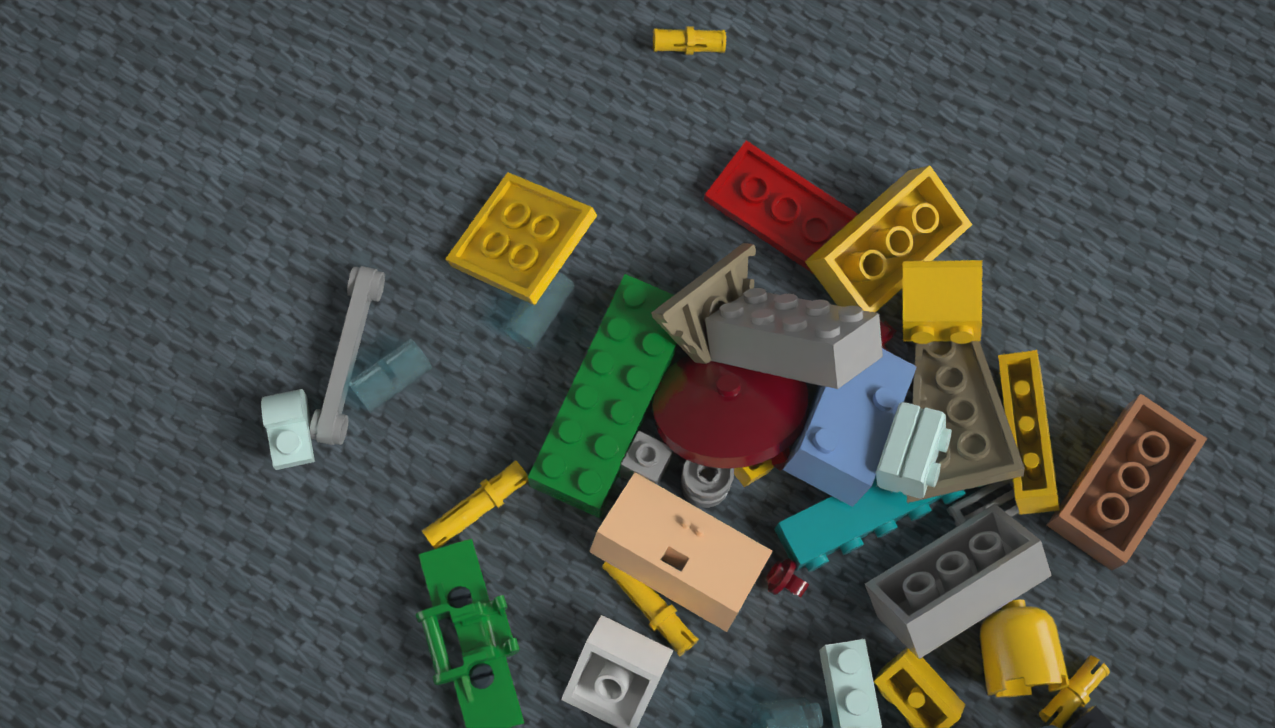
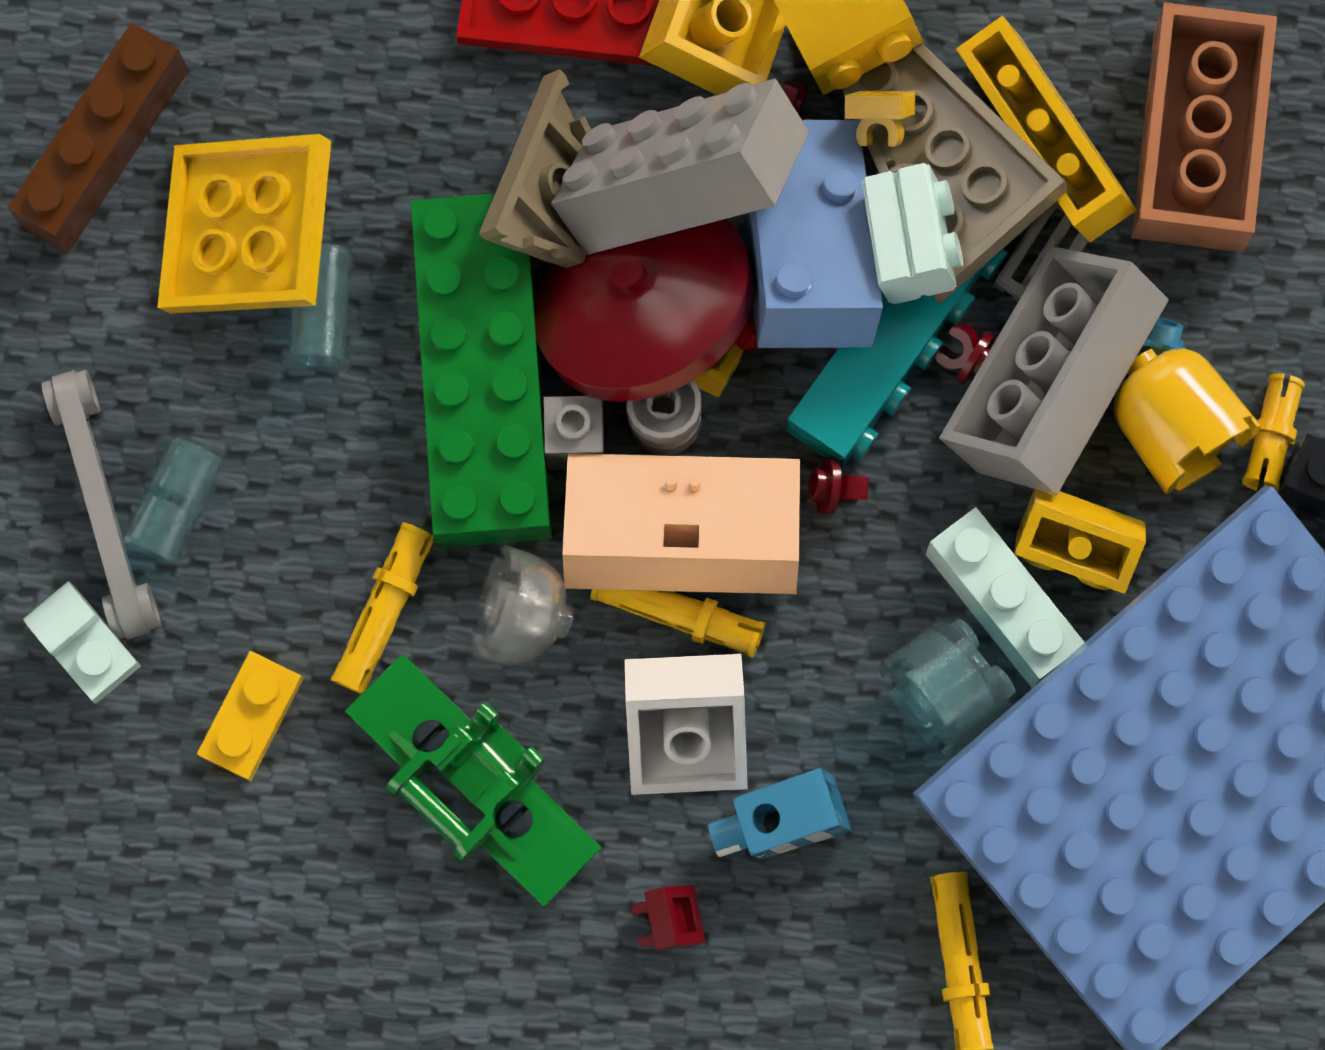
camera: 20 degrees left, 5 degrees up
(362, 526) = (250, 716): none -> yellow plate
(466, 145) = (99, 138): none -> reddish brown brick
(556, 551) = (521, 608): none -> clear cylinder
(912, 544) = (973, 353): none -> dark red plate
(932, 365) = (880, 108): none -> yellow tile
(1036, 597) = (1164, 337): none -> dark azure plate

